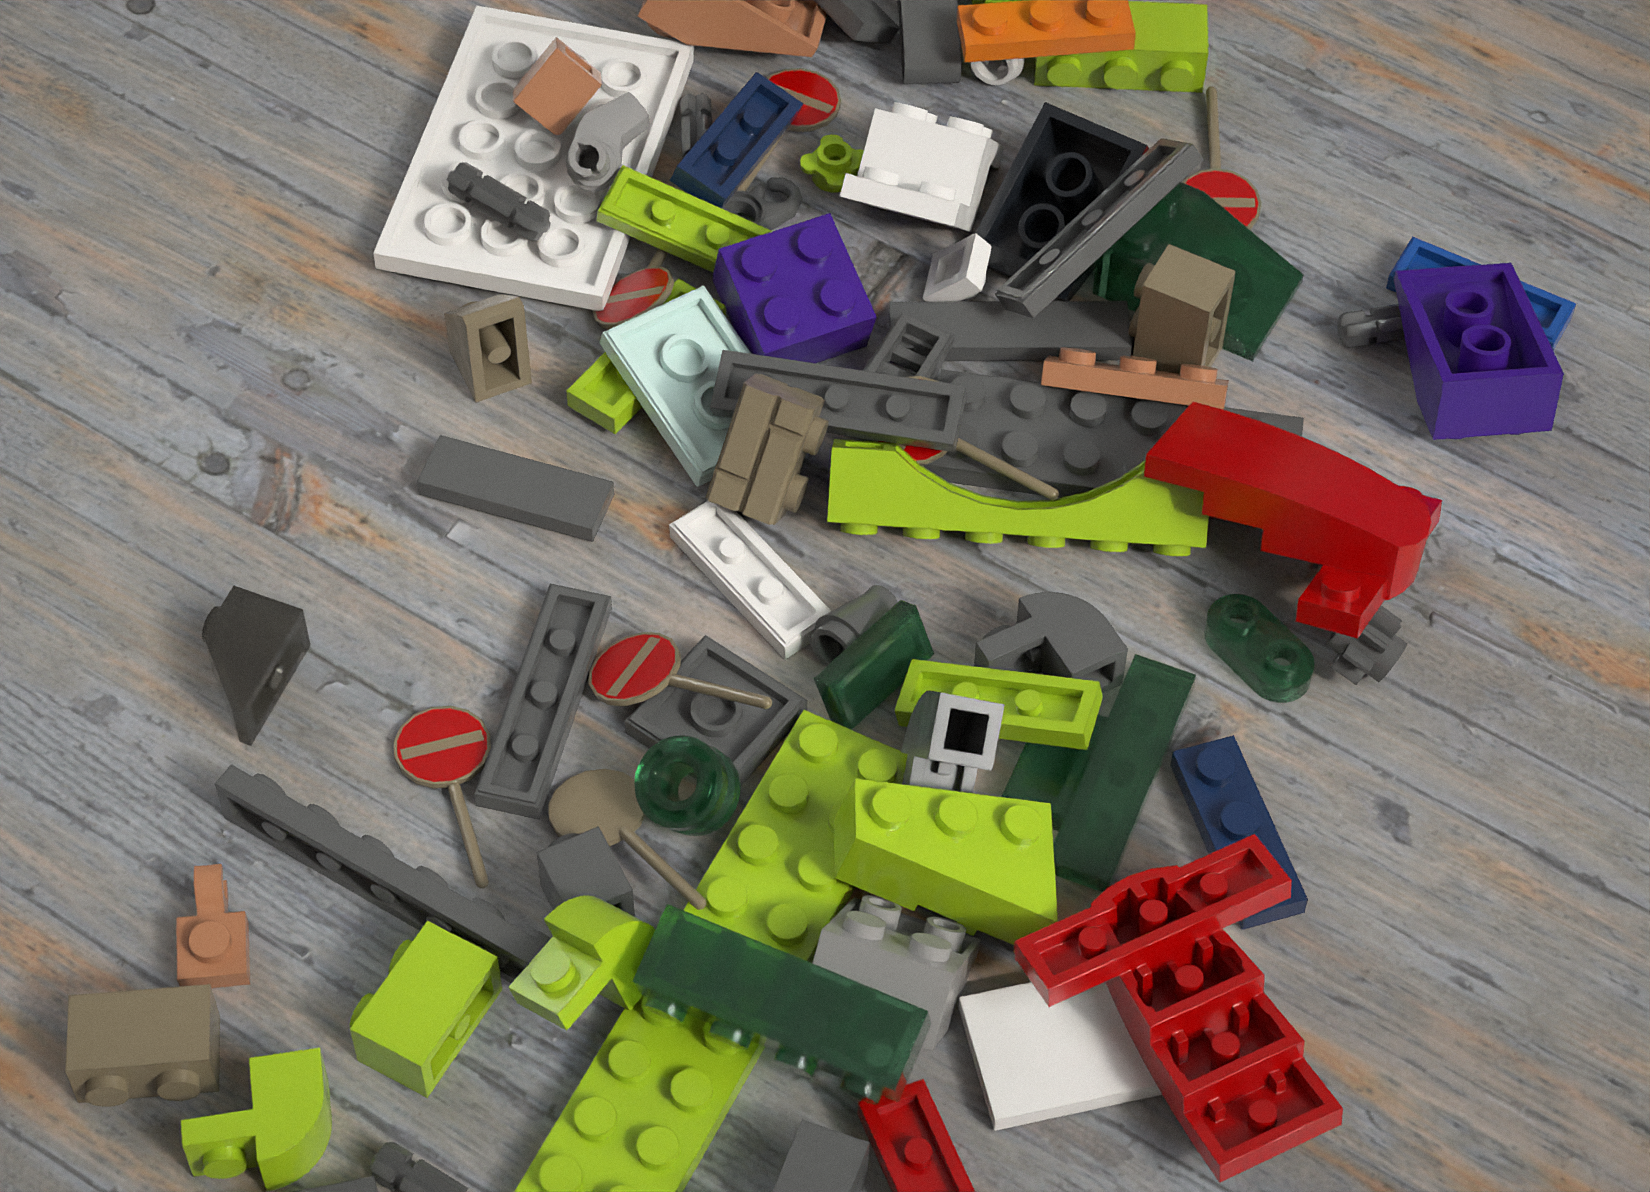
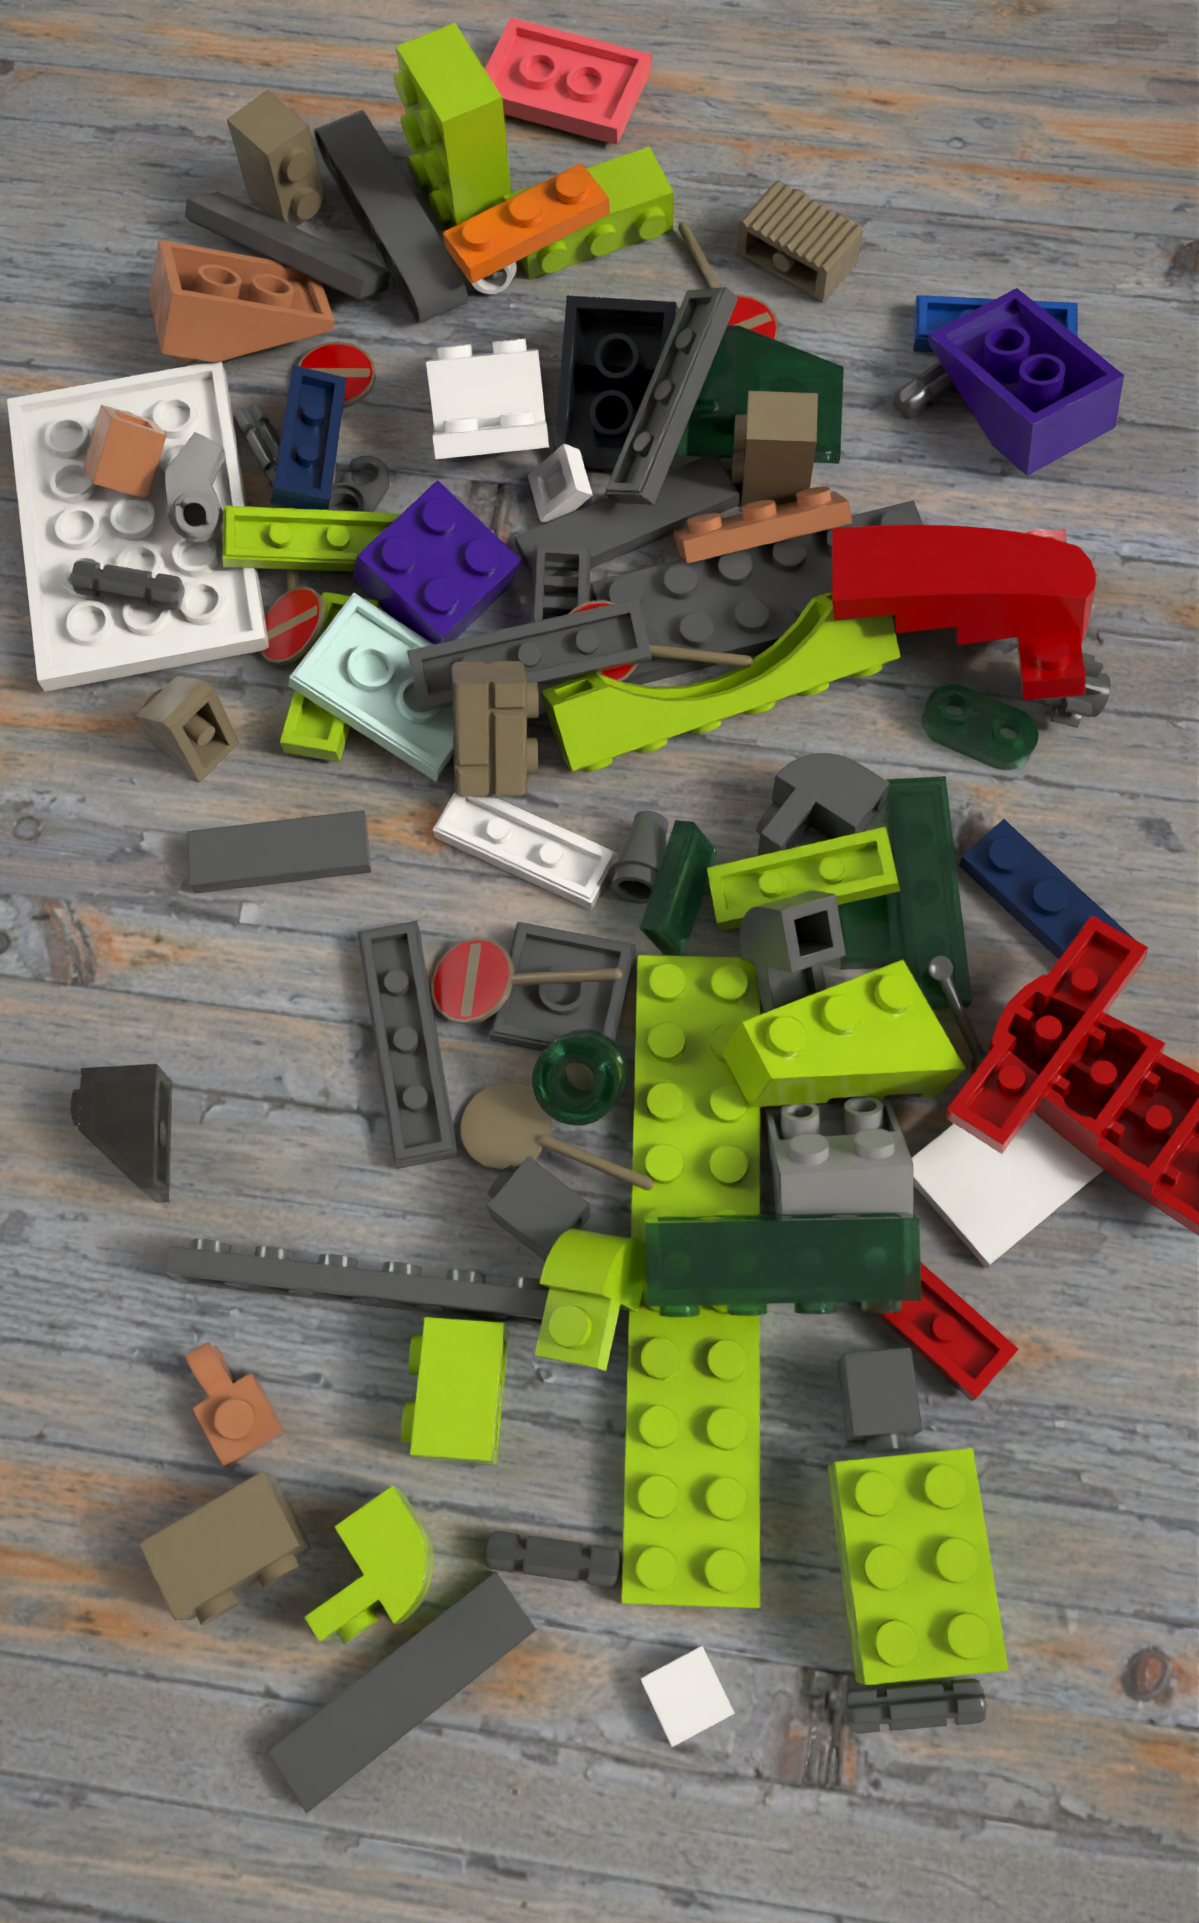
camera: 20 degrees left, 15 degrees up
(442, 751) = (343, 1130): piece -> none
(831, 163) = (403, 435): lime plate -> none
(1089, 837) = (940, 970): none -> dark grey hinge
(1318, 144) = (800, 240): none -> dark tan brick

